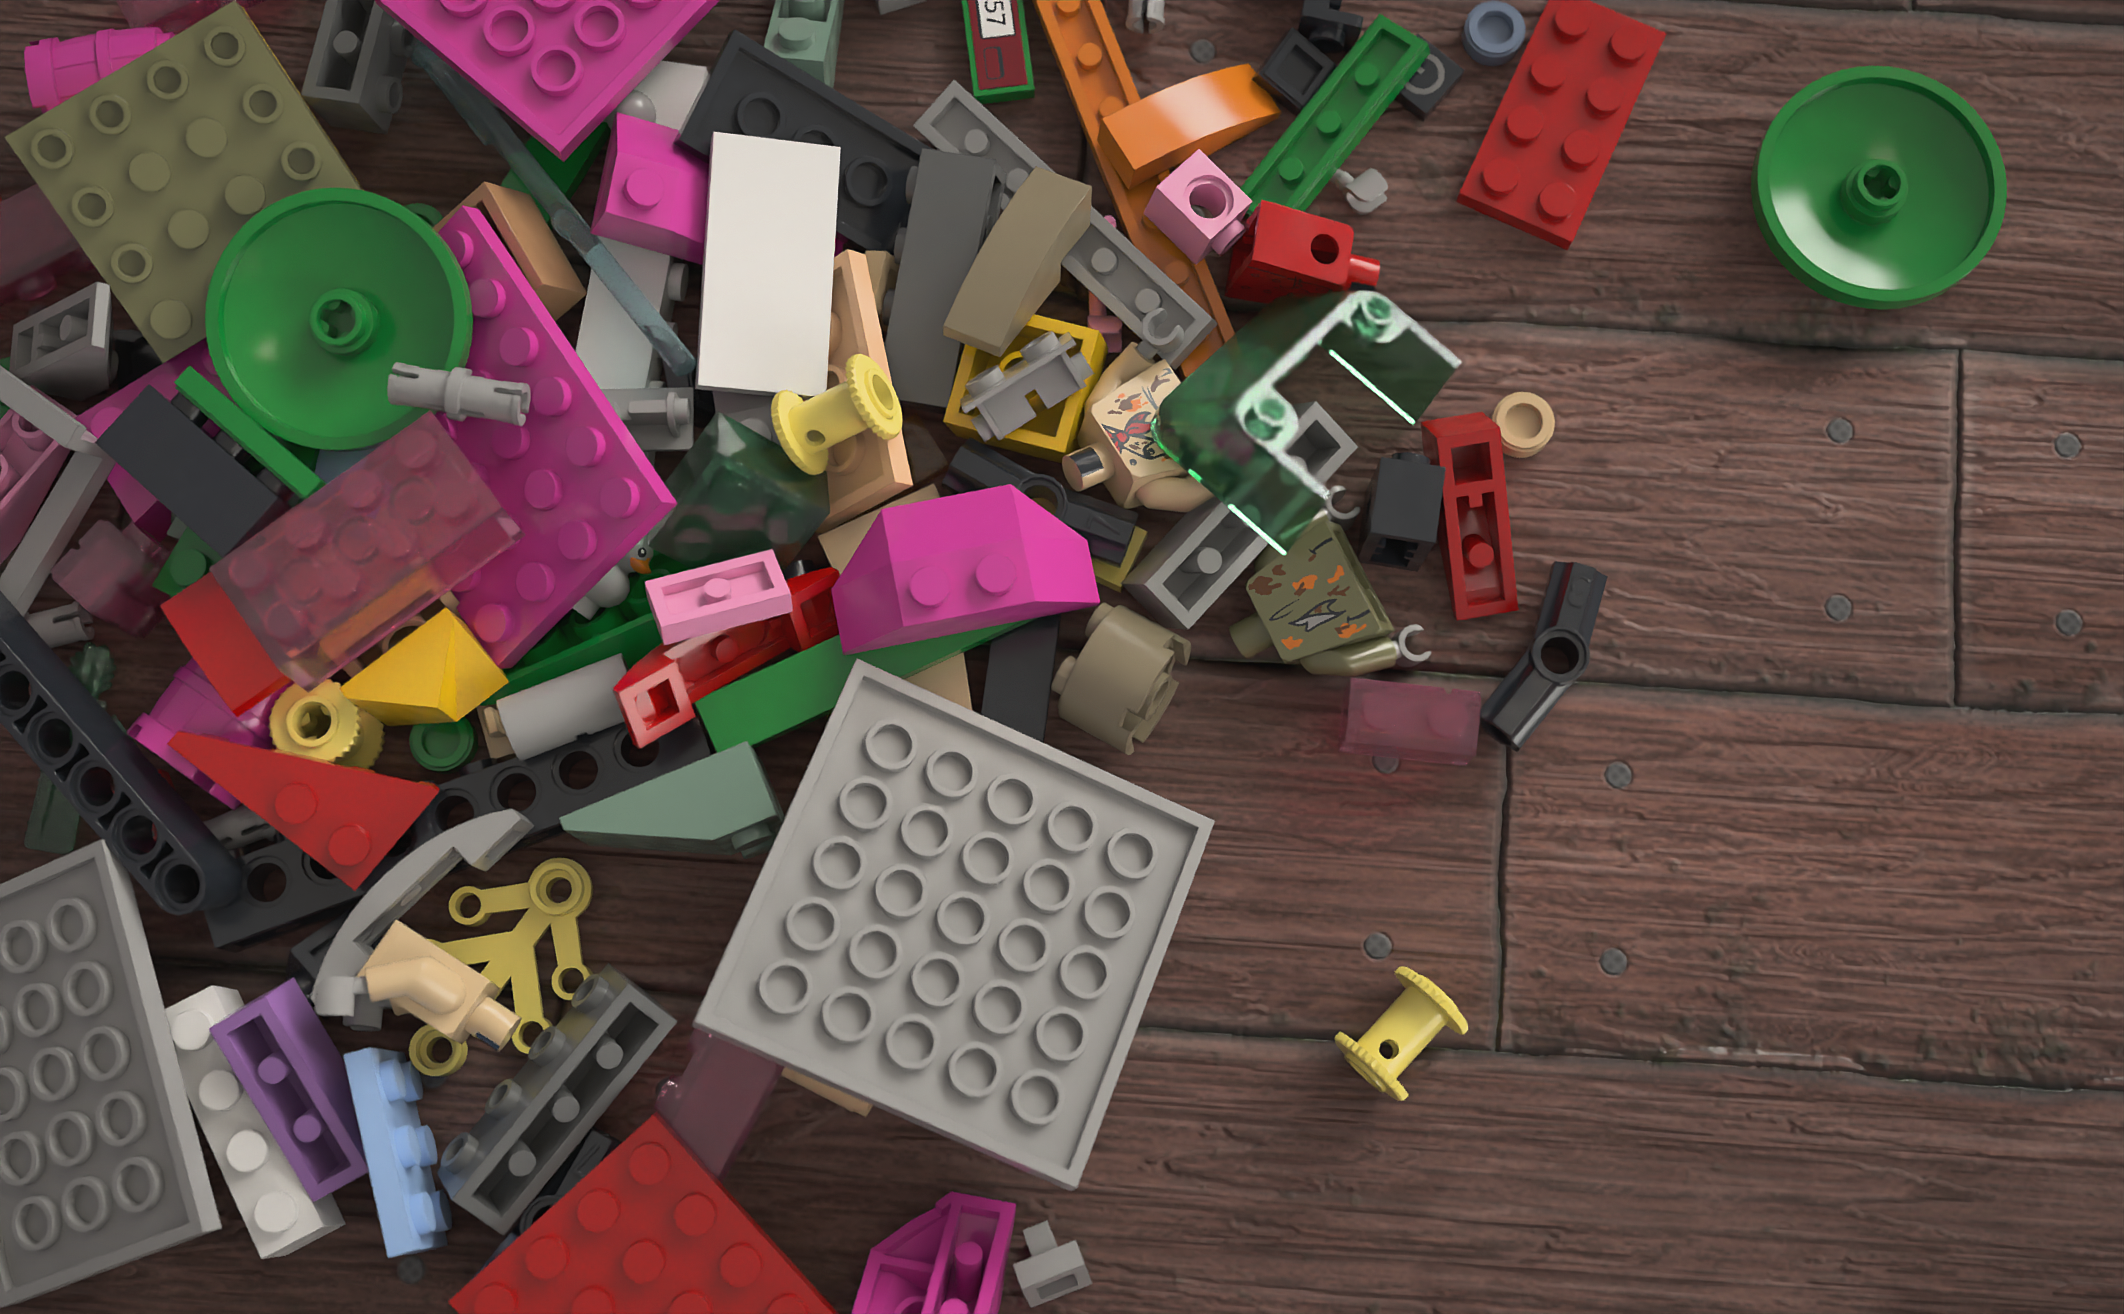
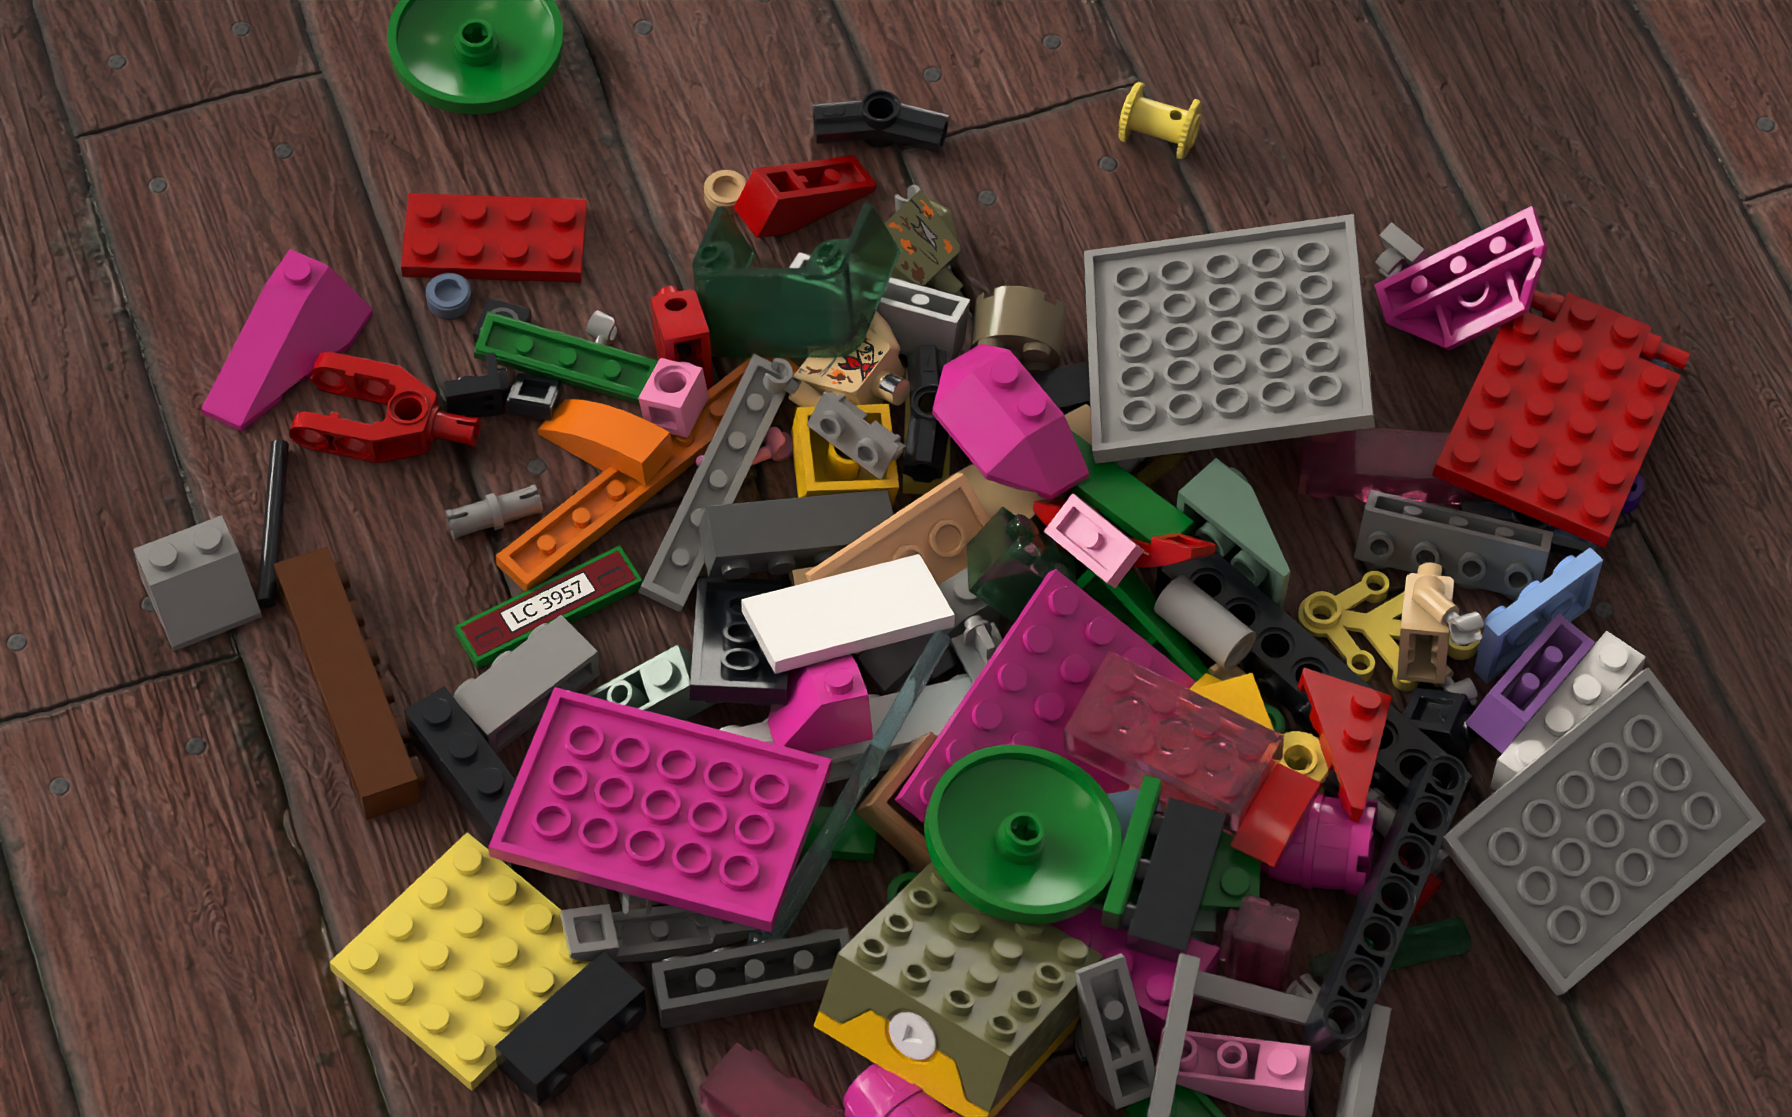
camera: 115 degrees left, 20 degrees down
(458, 393) = (1041, 725): light grey pin -> none
(477, 840) = (1376, 665): light grey slope -> none
(837, 414) = (935, 523): light yellow hose -> none
(1019, 261) = (771, 467): dark tan slope -> none
(1401, 512) = (827, 208): black brick -> none
(1409, 722) = (962, 178): clear pink brick -> none

